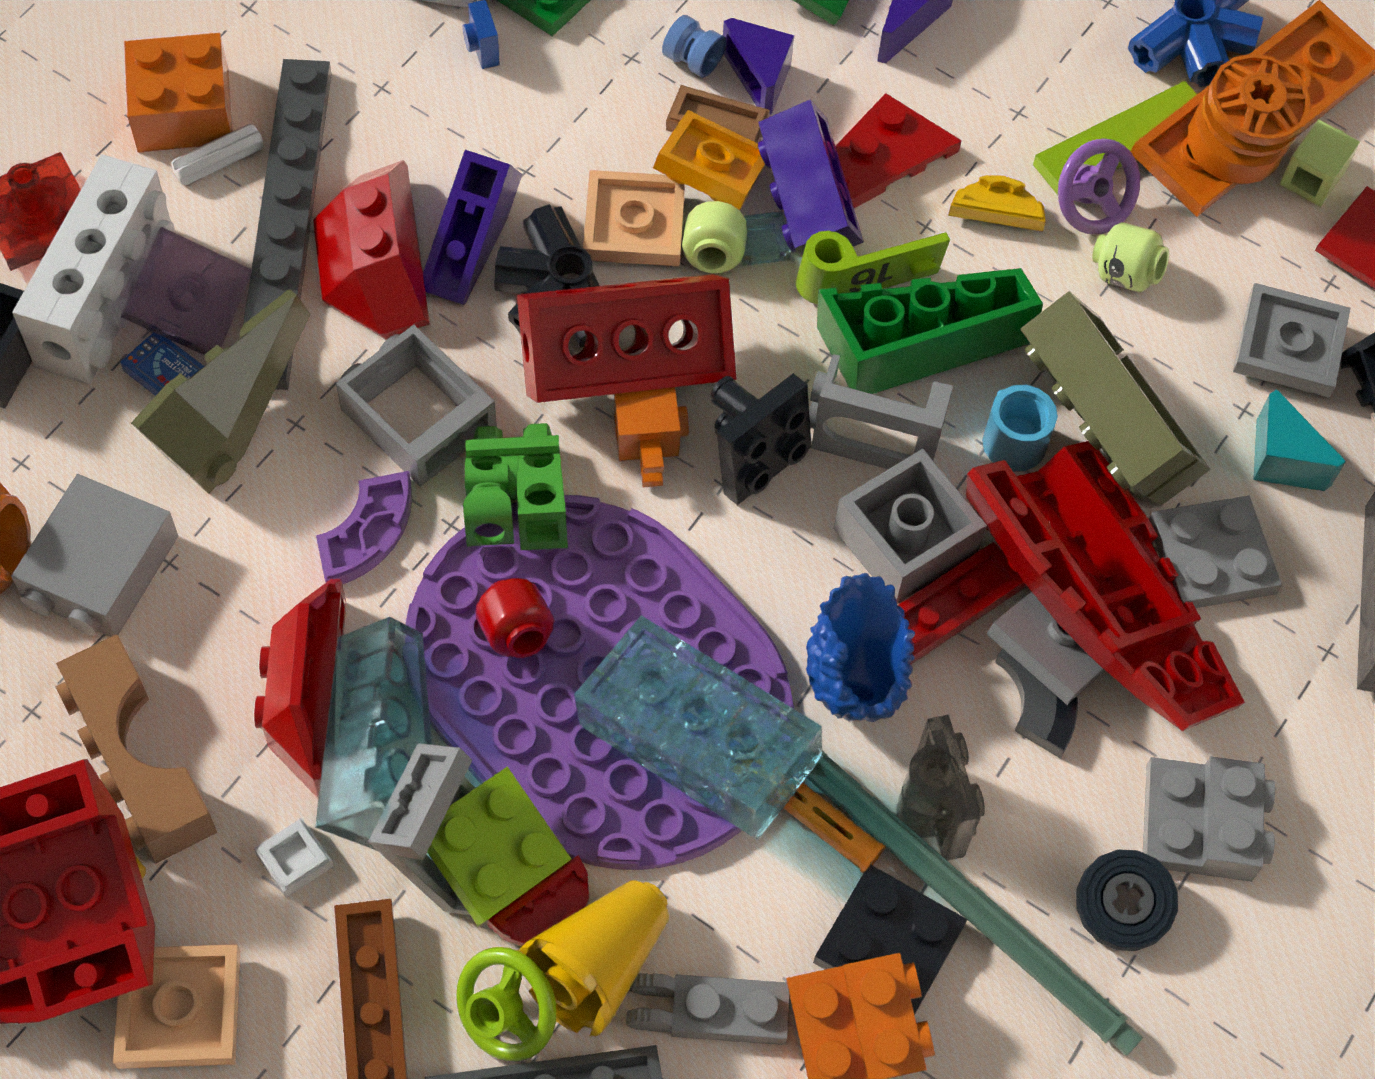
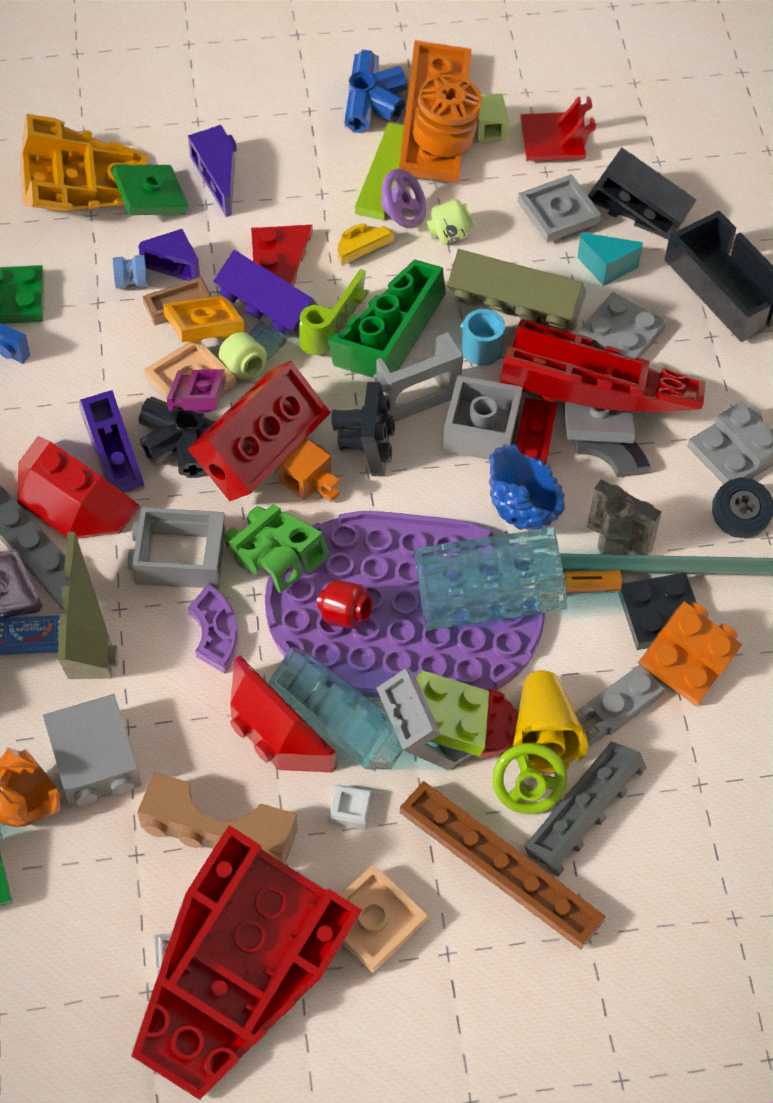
camera: 40 degrees left, 5 degrees down
(606, 236) = (197, 390): none -> magenta plate

